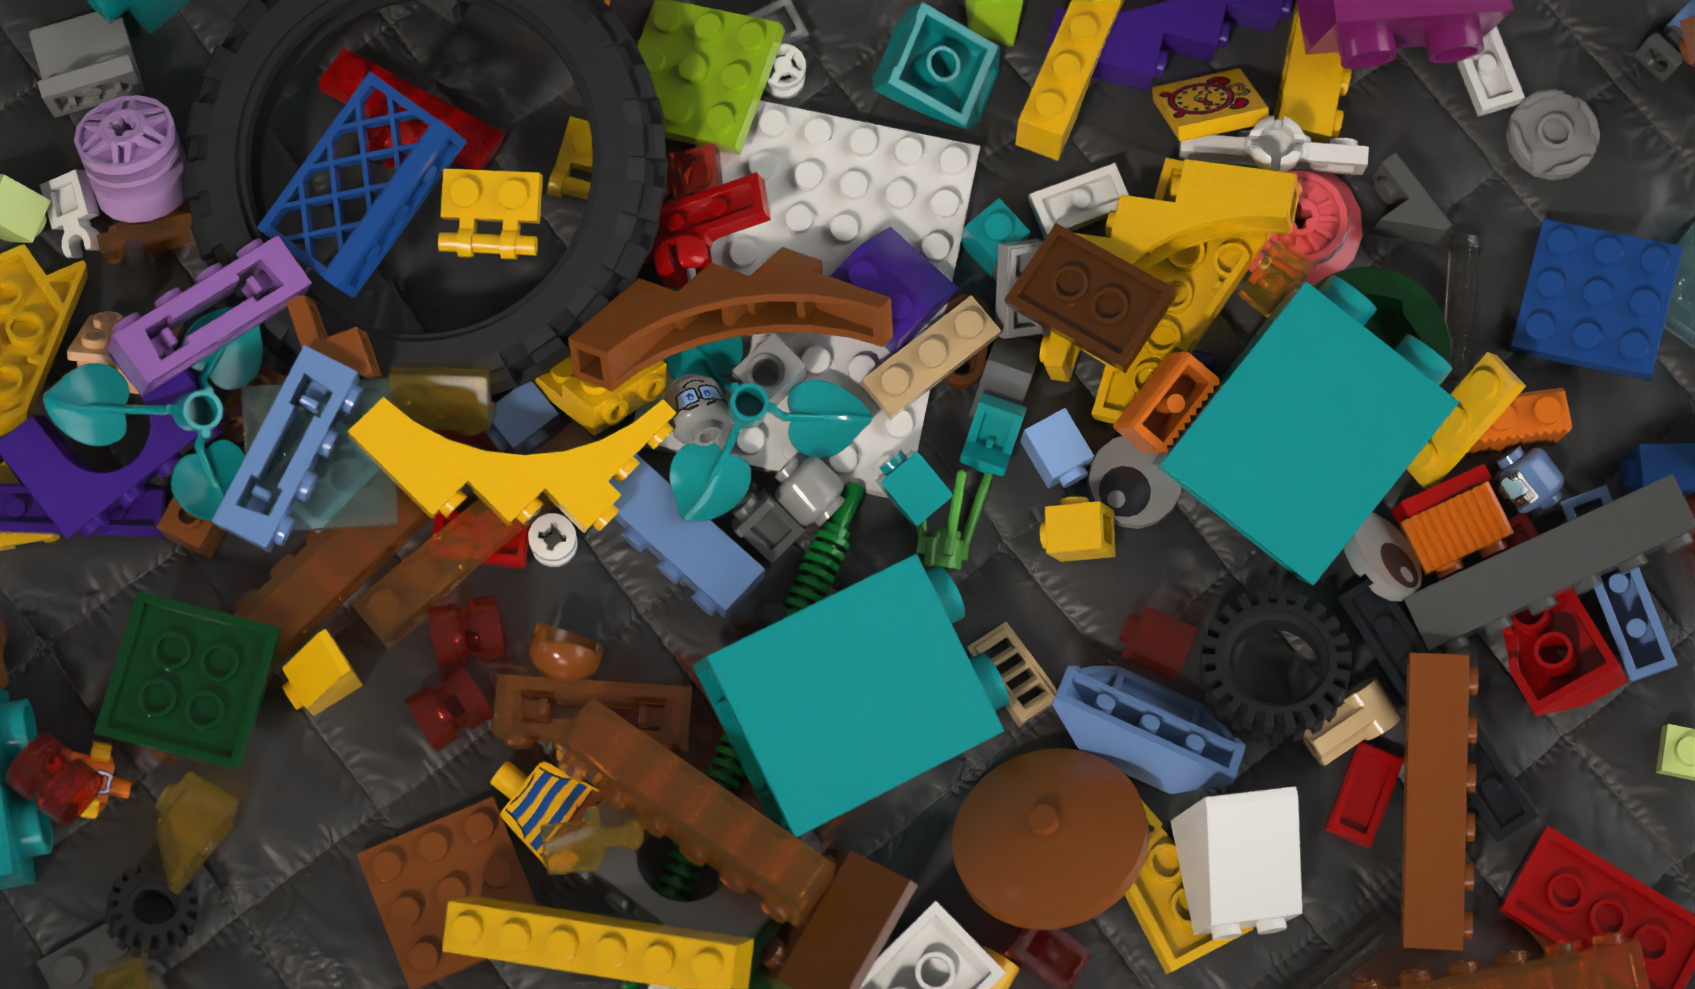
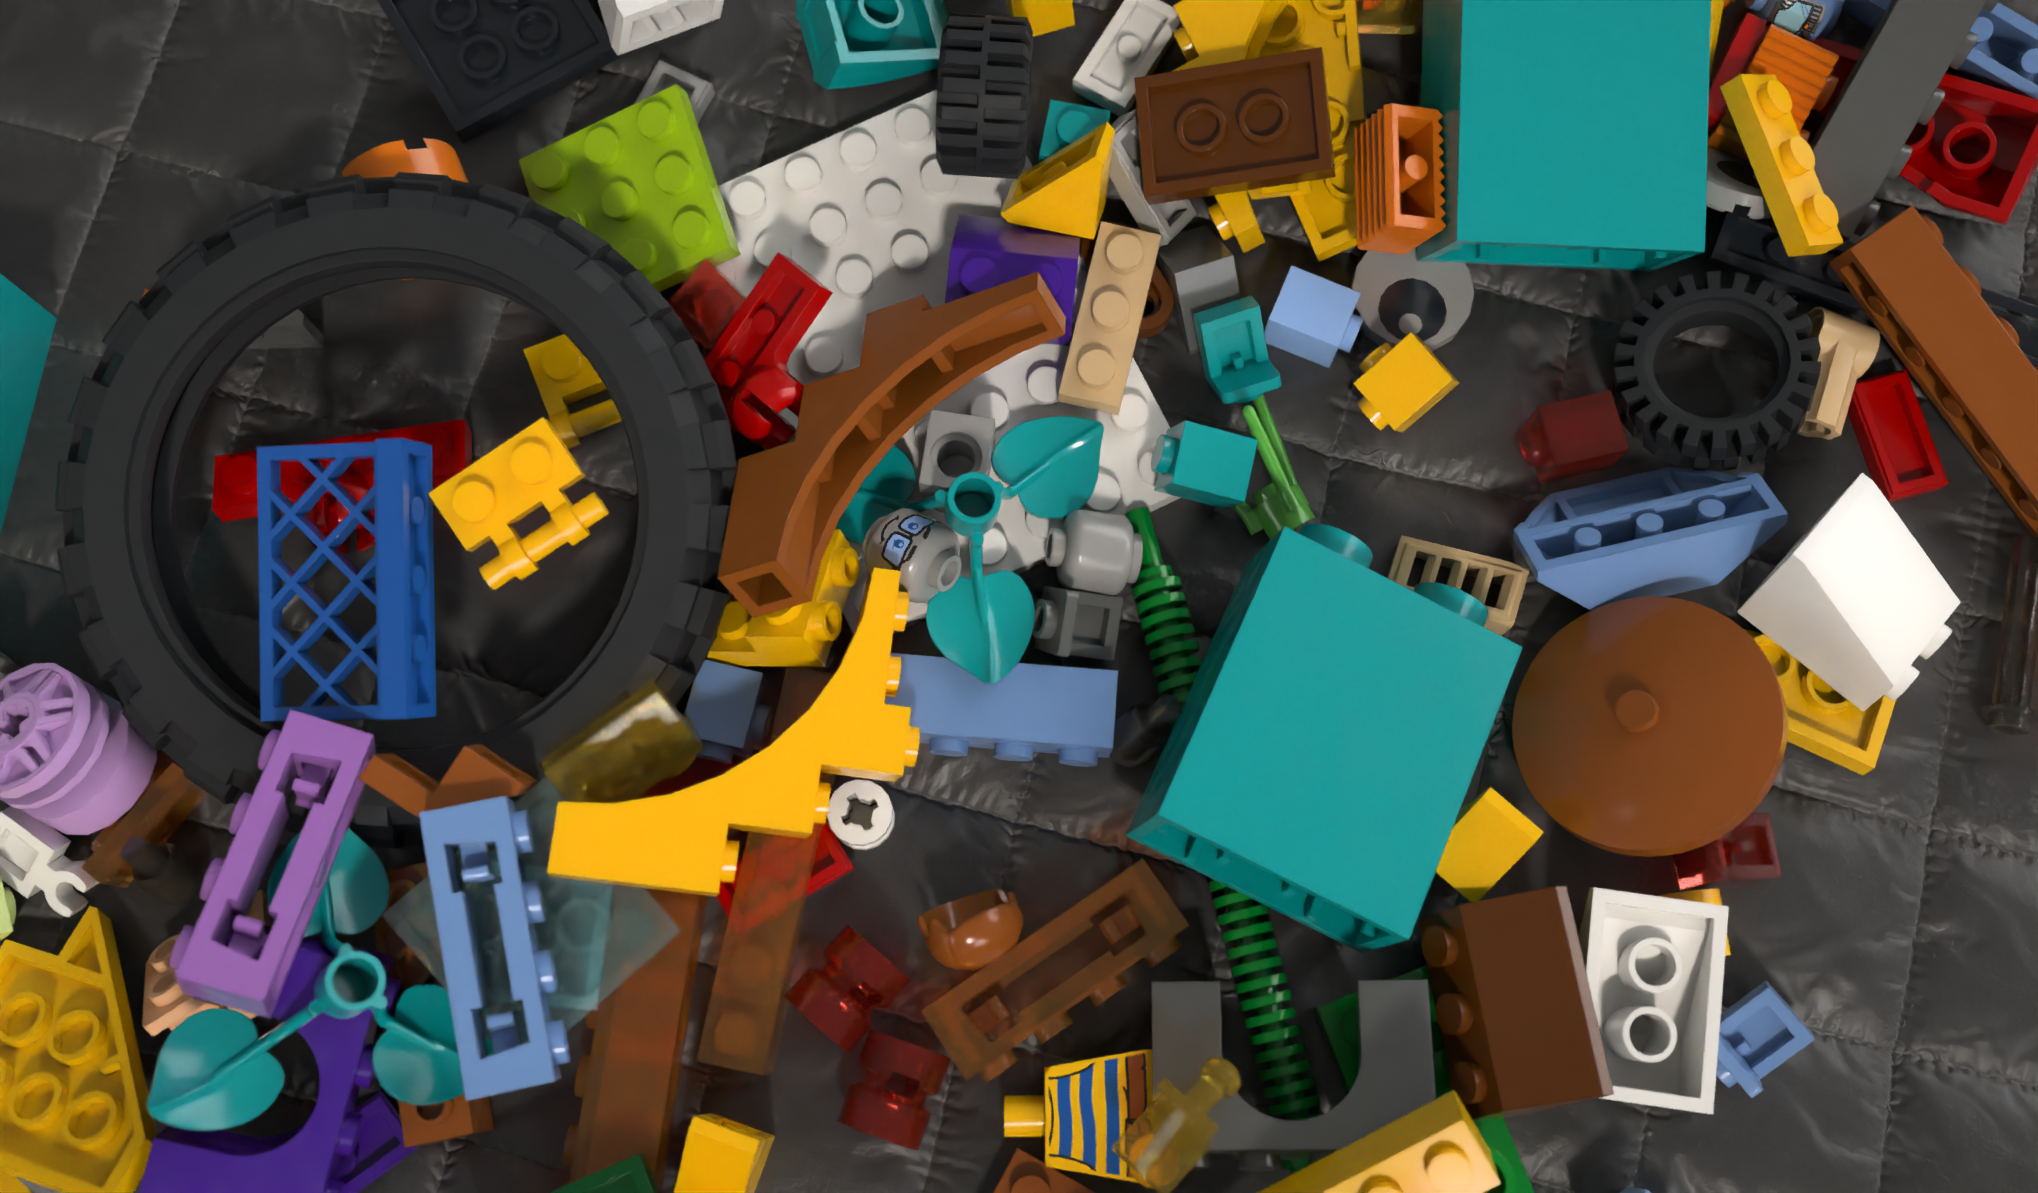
camera: 30 degrees left, 0 degrees up
(694, 813) = (1270, 998): clear orange brick -> none
(787, 62) = (721, 124): white wheel -> none
(890, 829) = (1485, 844): none -> yellow slope
(953, 167) = (983, 95): none -> black tyre
(962, 259) = (1065, 189): none -> yellow slope
(1414, 571) = (1782, 164): none -> yellow plate

